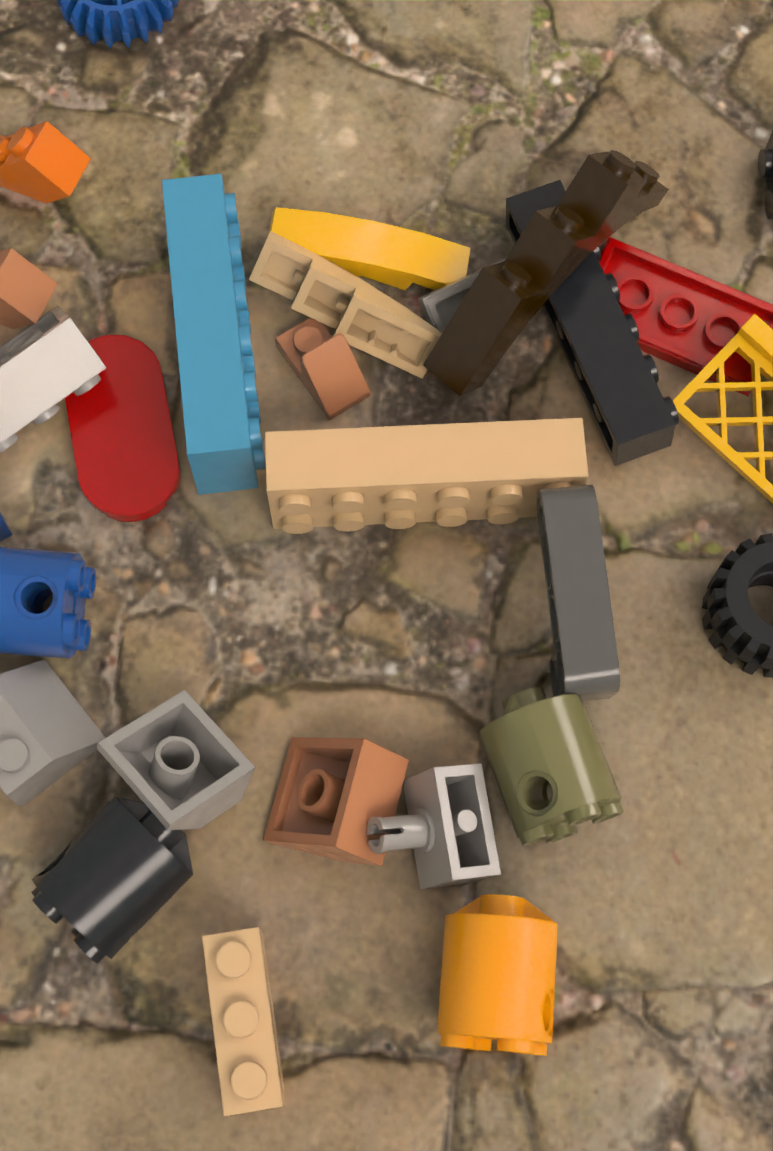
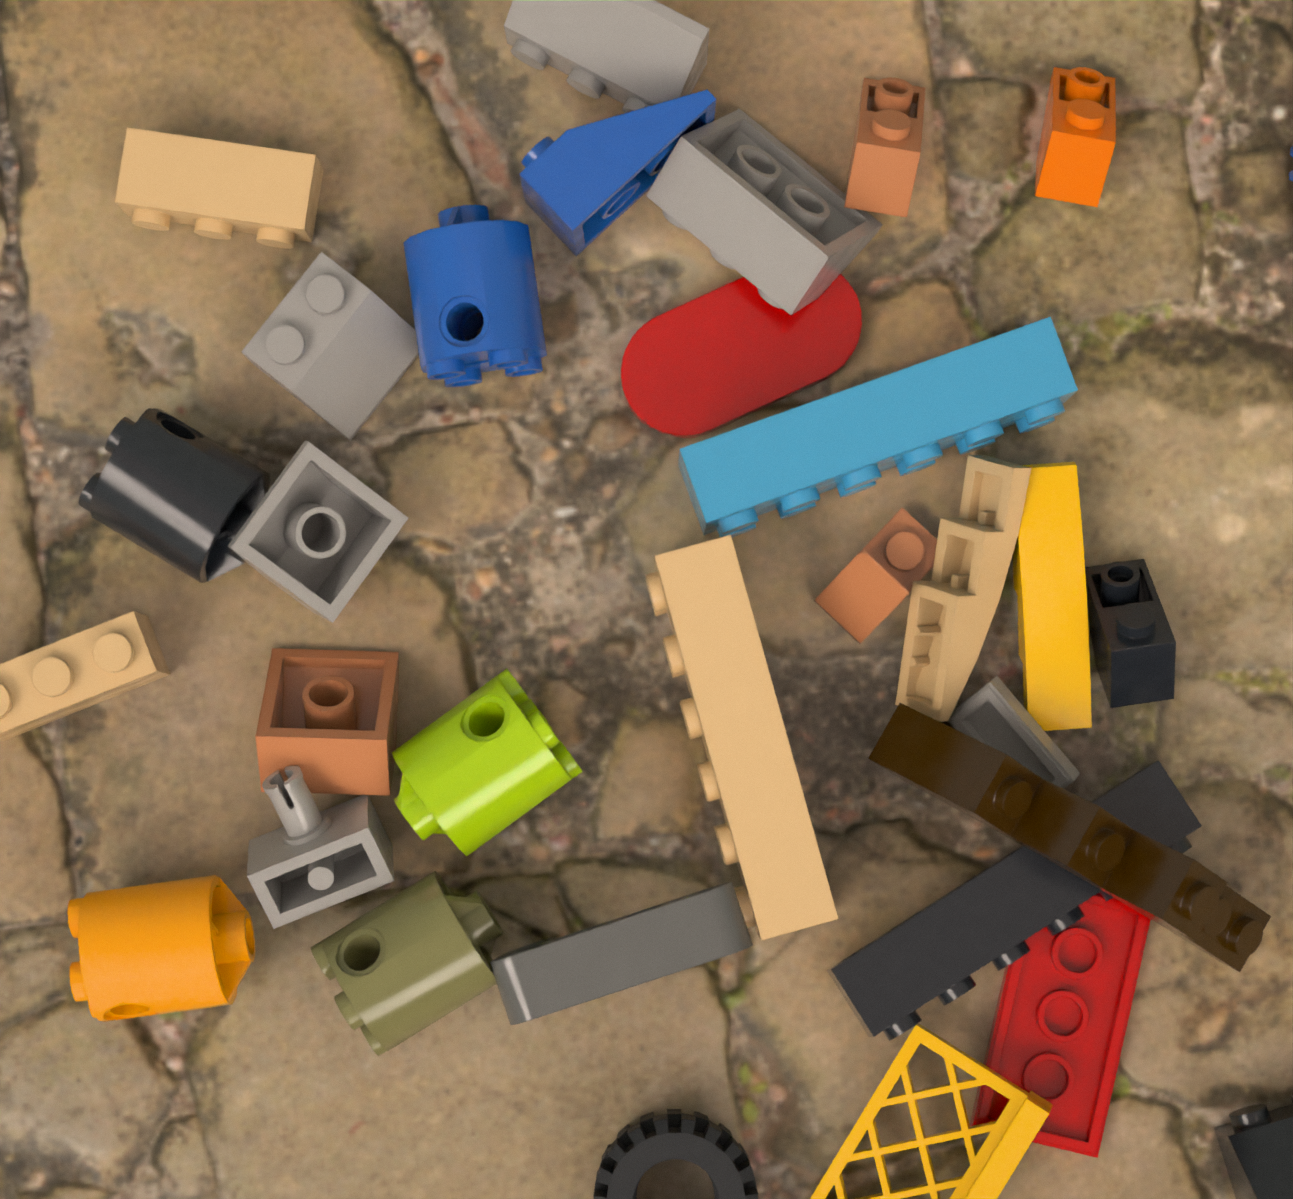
camera: 80 degrees right, 15 degrees up
(401, 675) = (481, 766): none -> lime cylinder
(413, 199) = (1130, 634): none -> black slope

